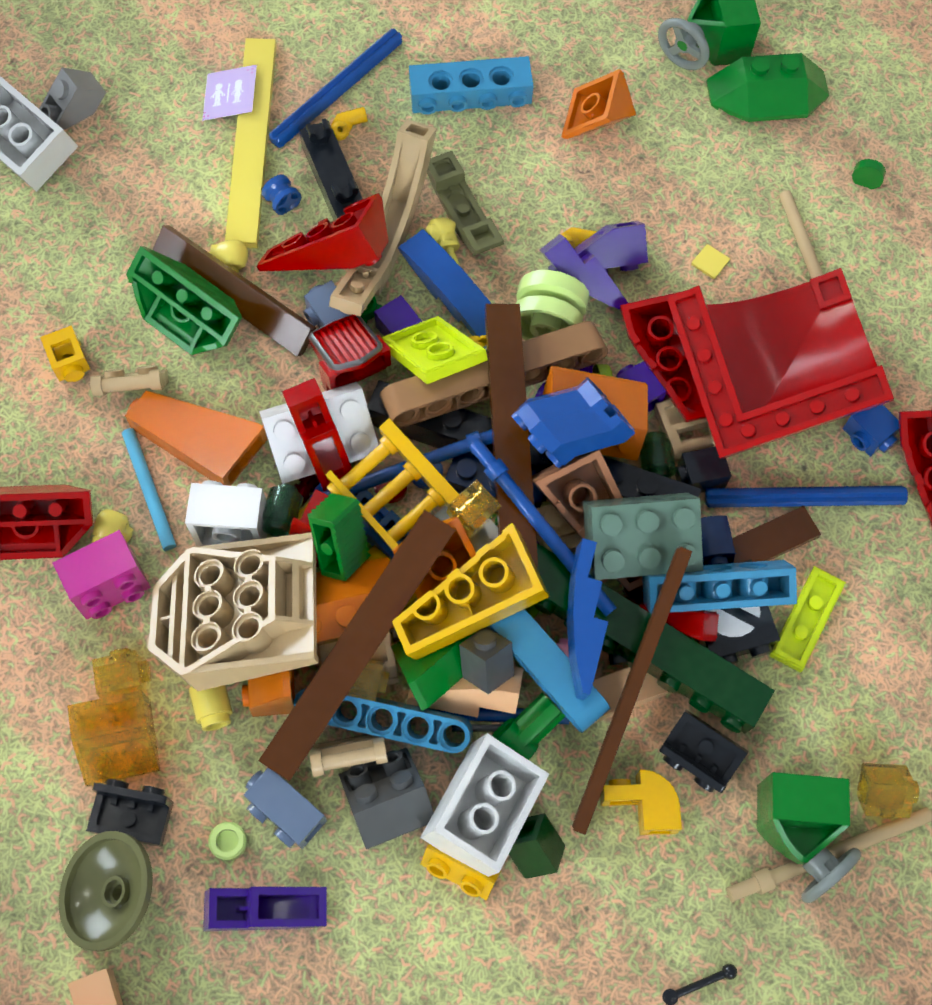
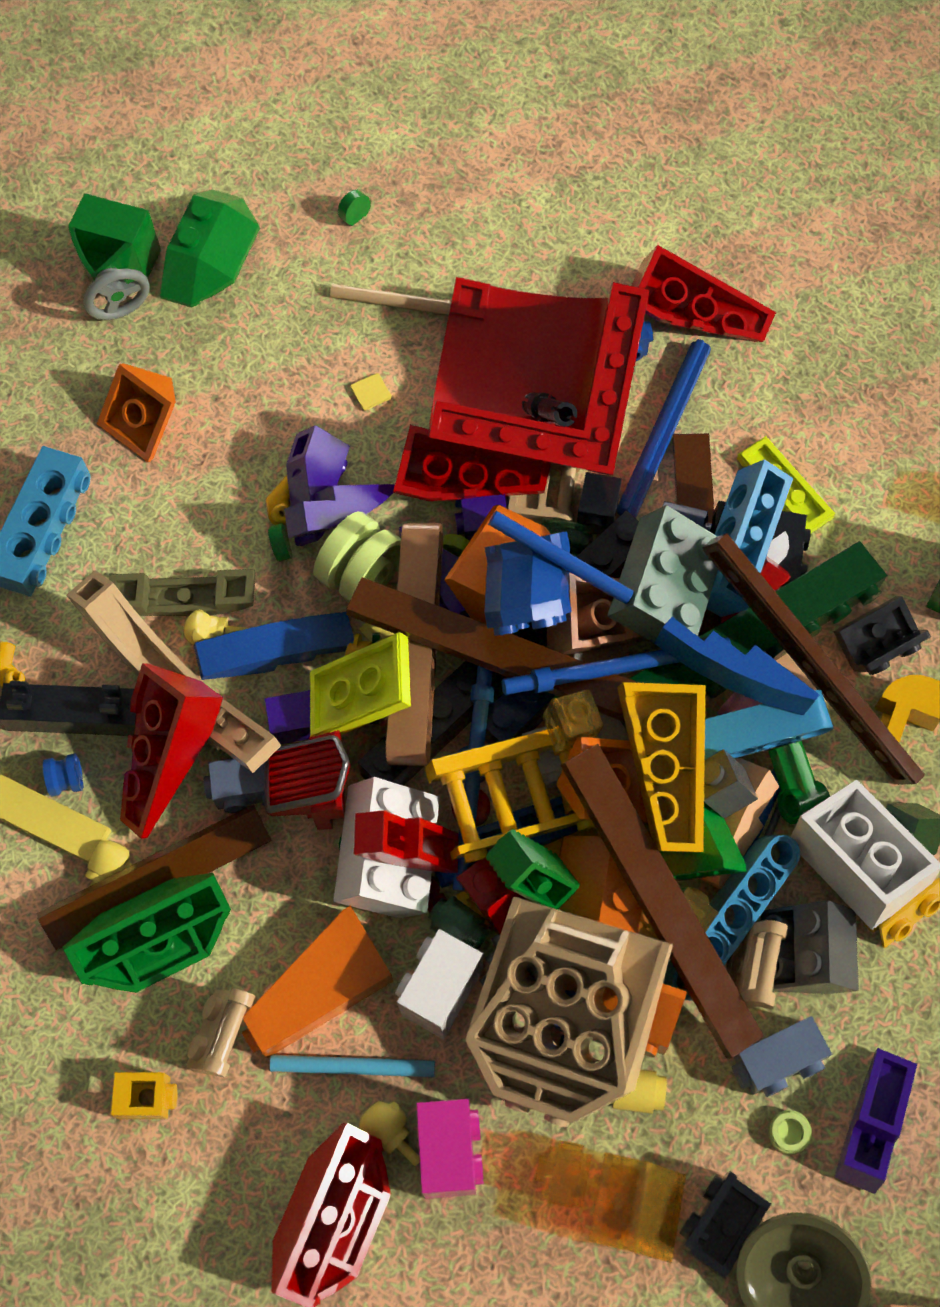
camera: 60 degrees left, 0 degrees up
(534, 256) = (280, 542): none -> green tile
(599, 429) = (560, 557): none -> blue bar
(756, 380) = (549, 409): none -> black pin

